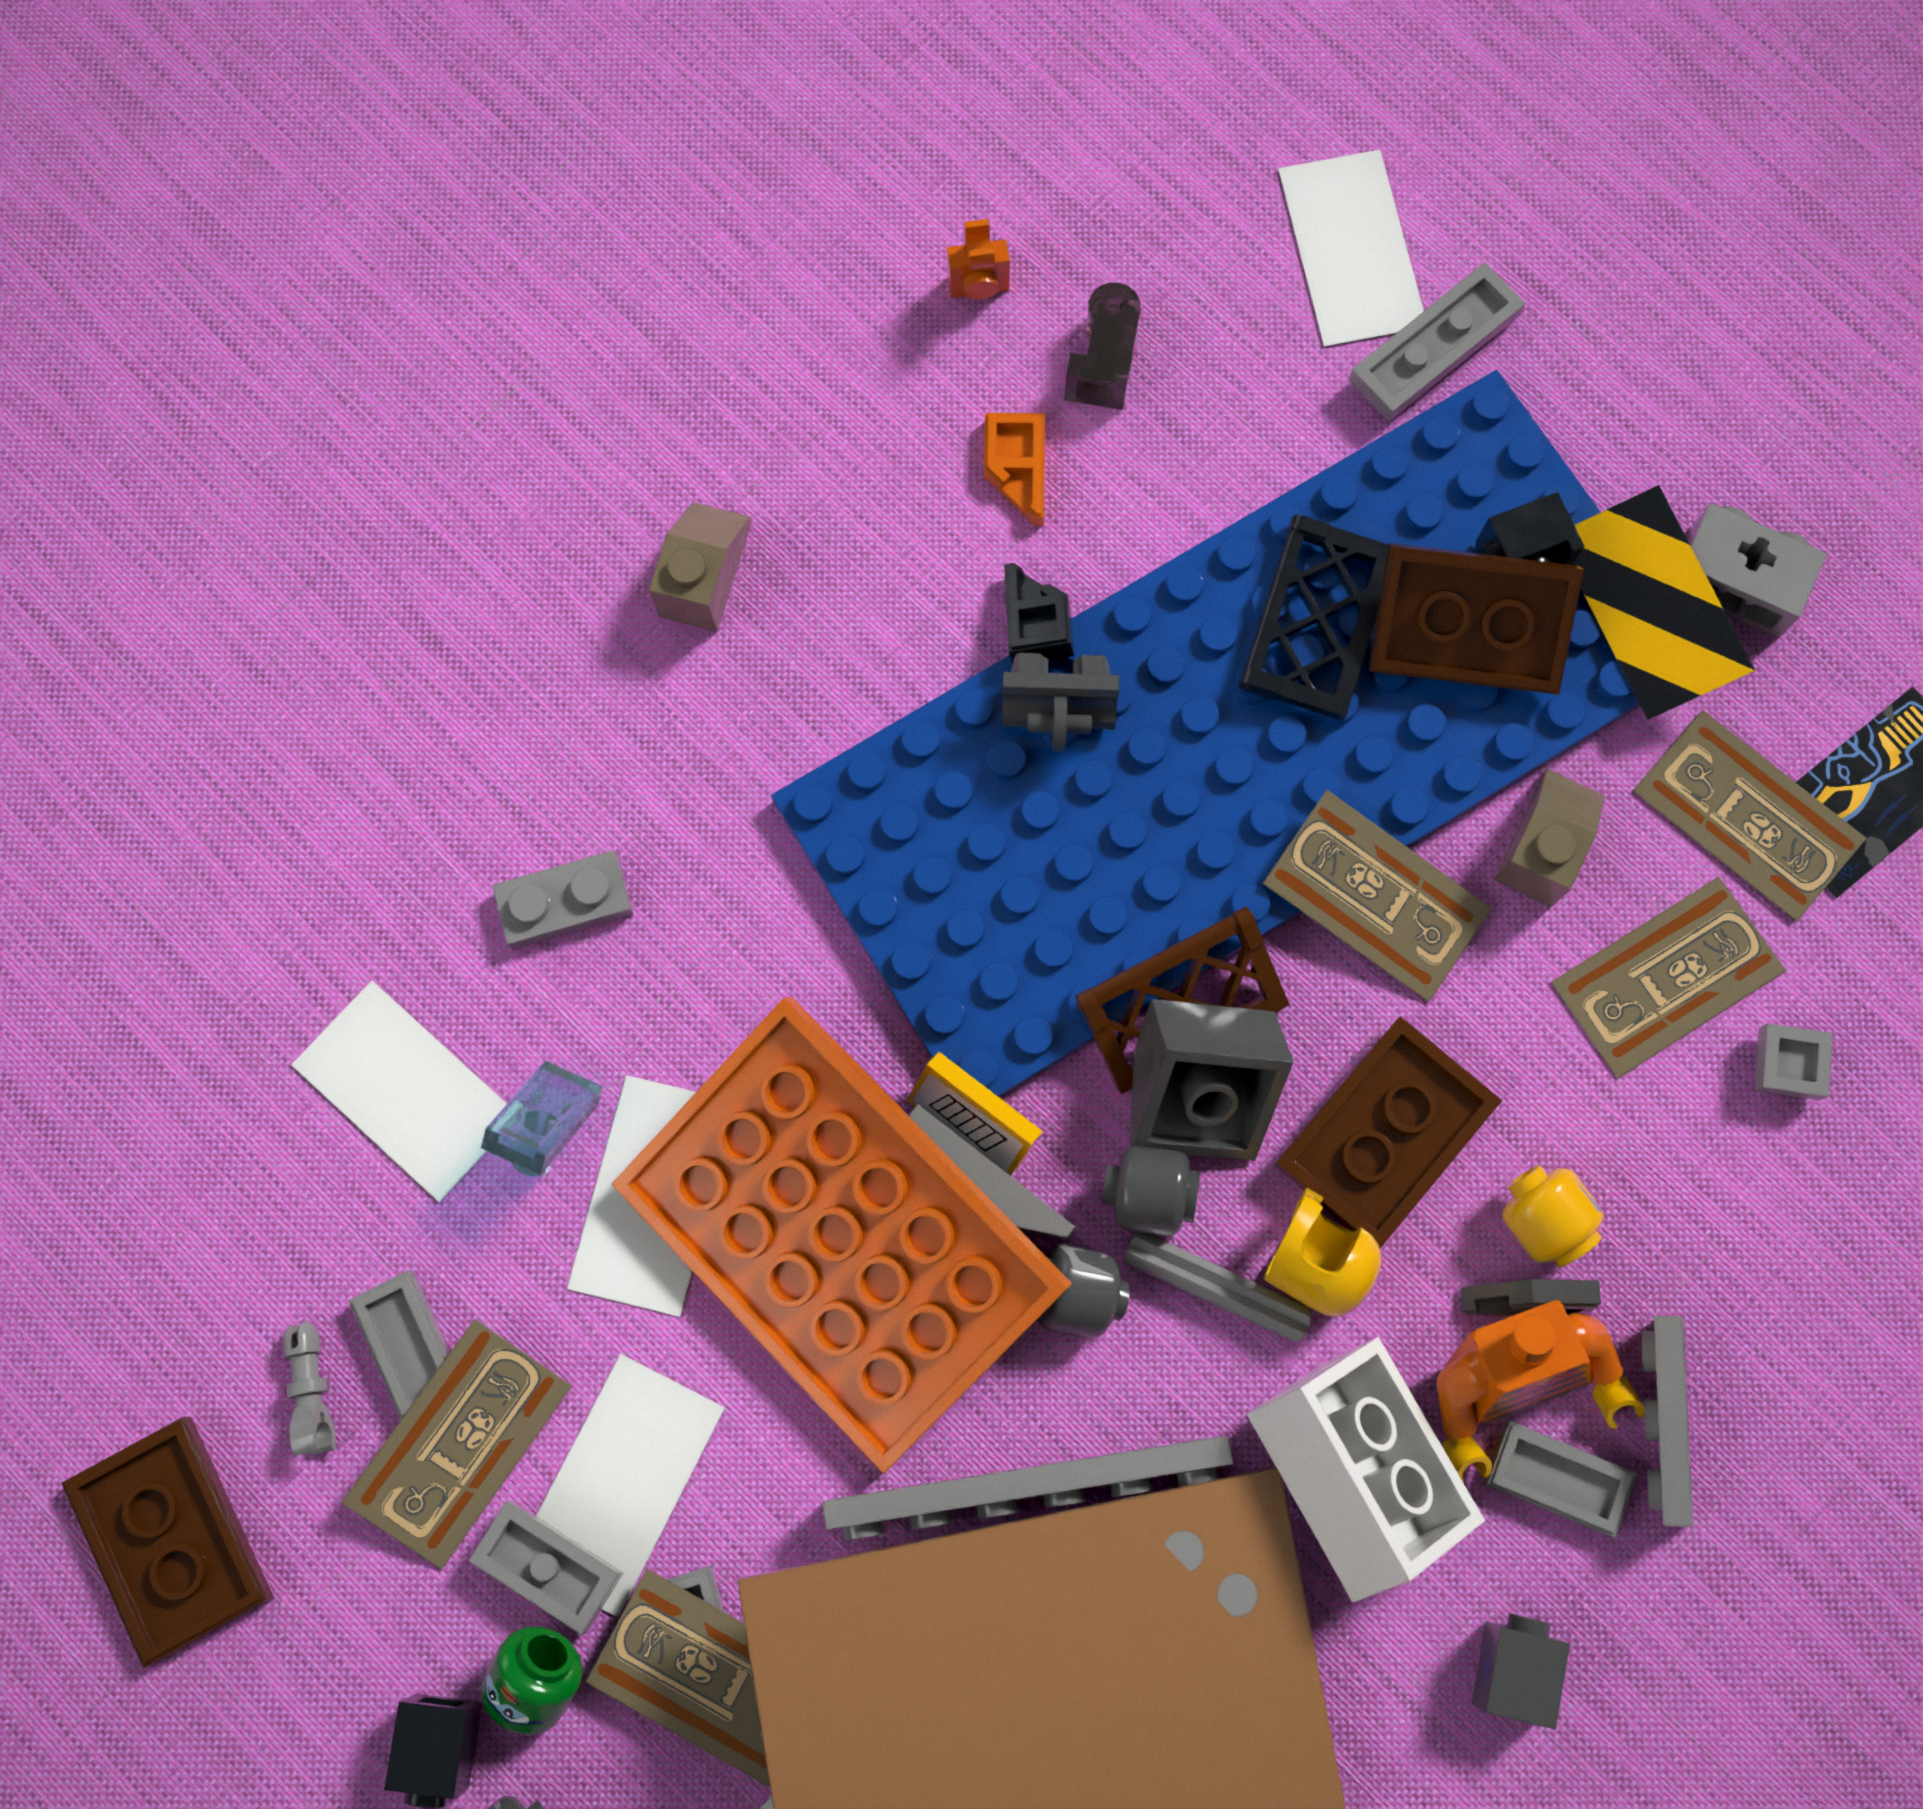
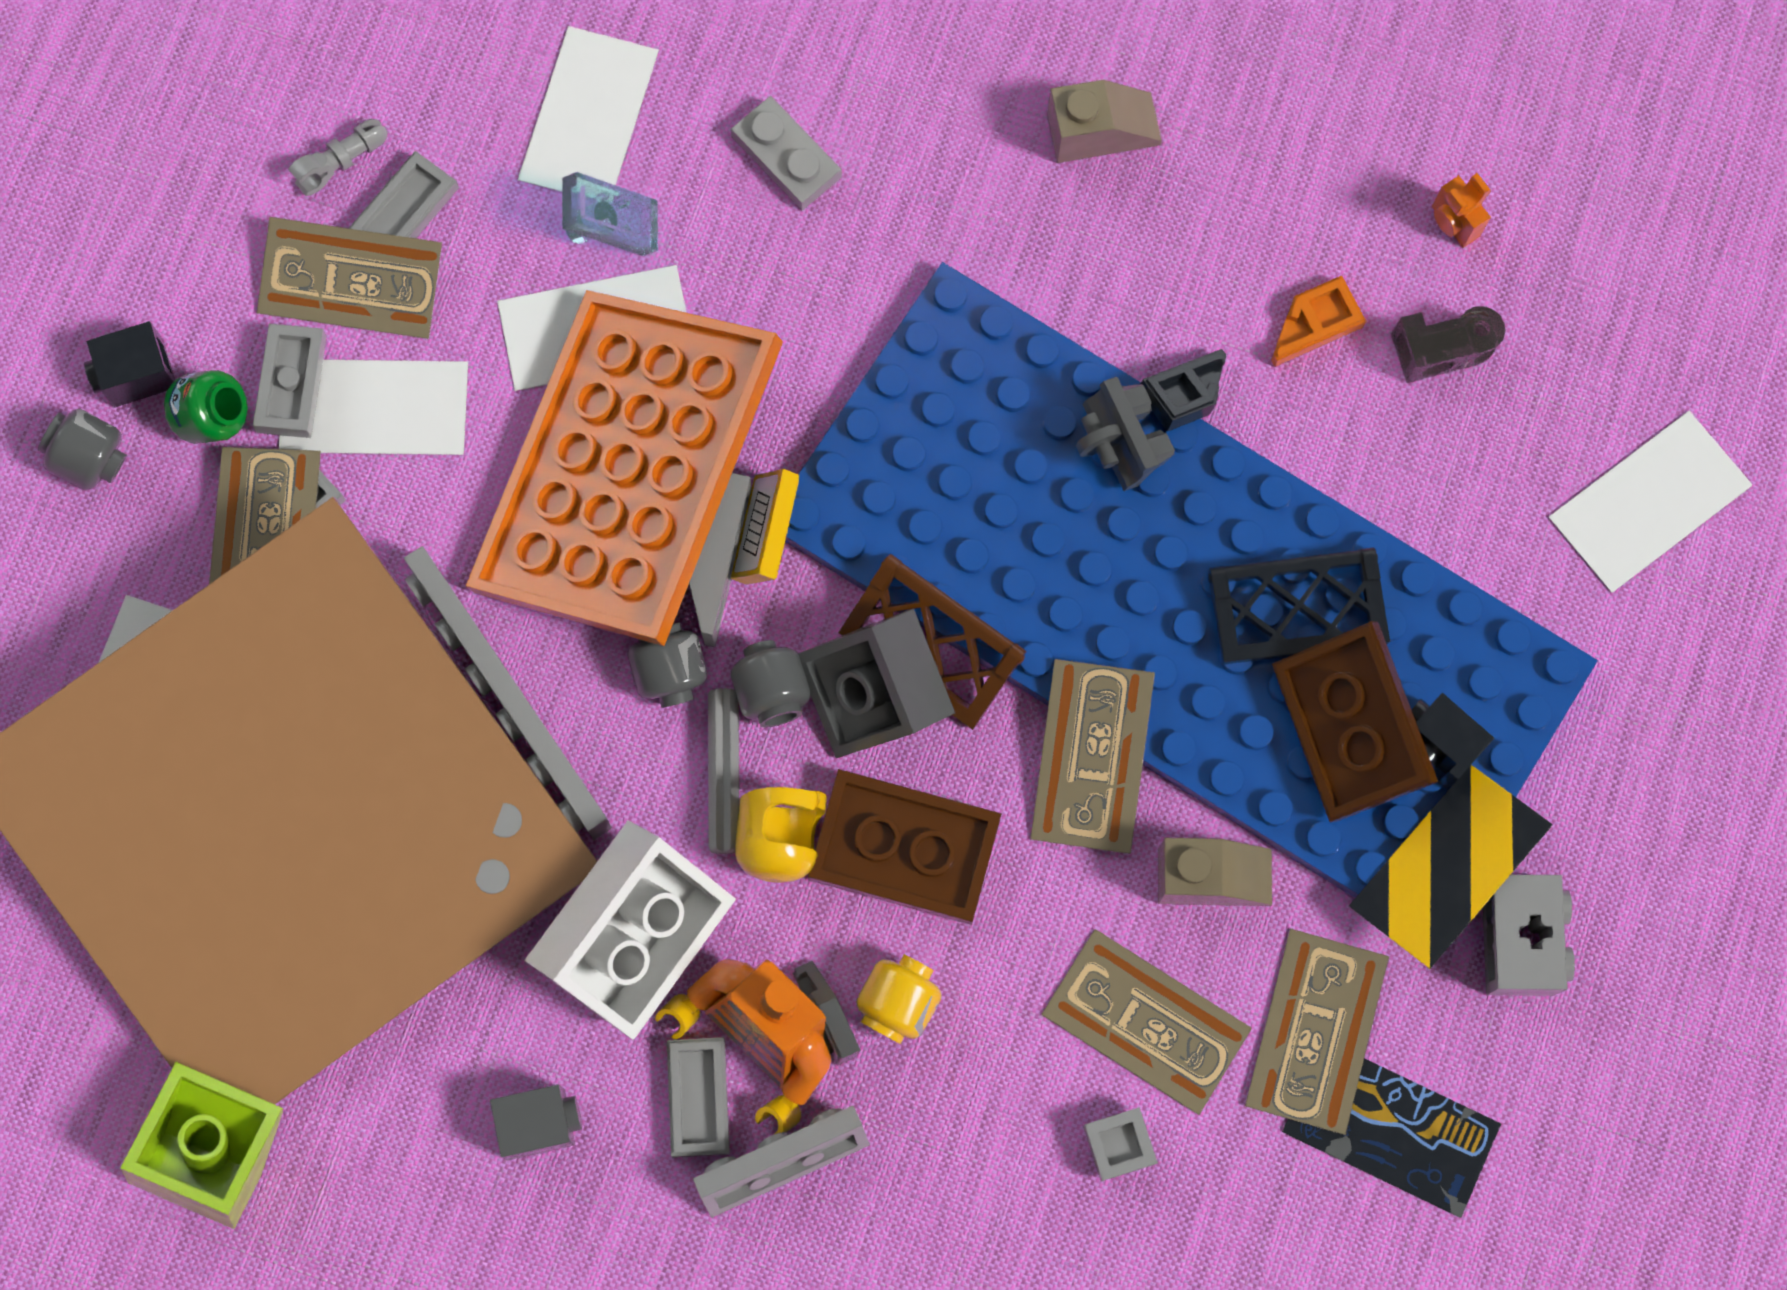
camera: 60 degrees right, 0 degrees up
(167, 1541) = (191, 116): reddish brown tile -> none
(1436, 342) = (1596, 601): light grey plate -> none

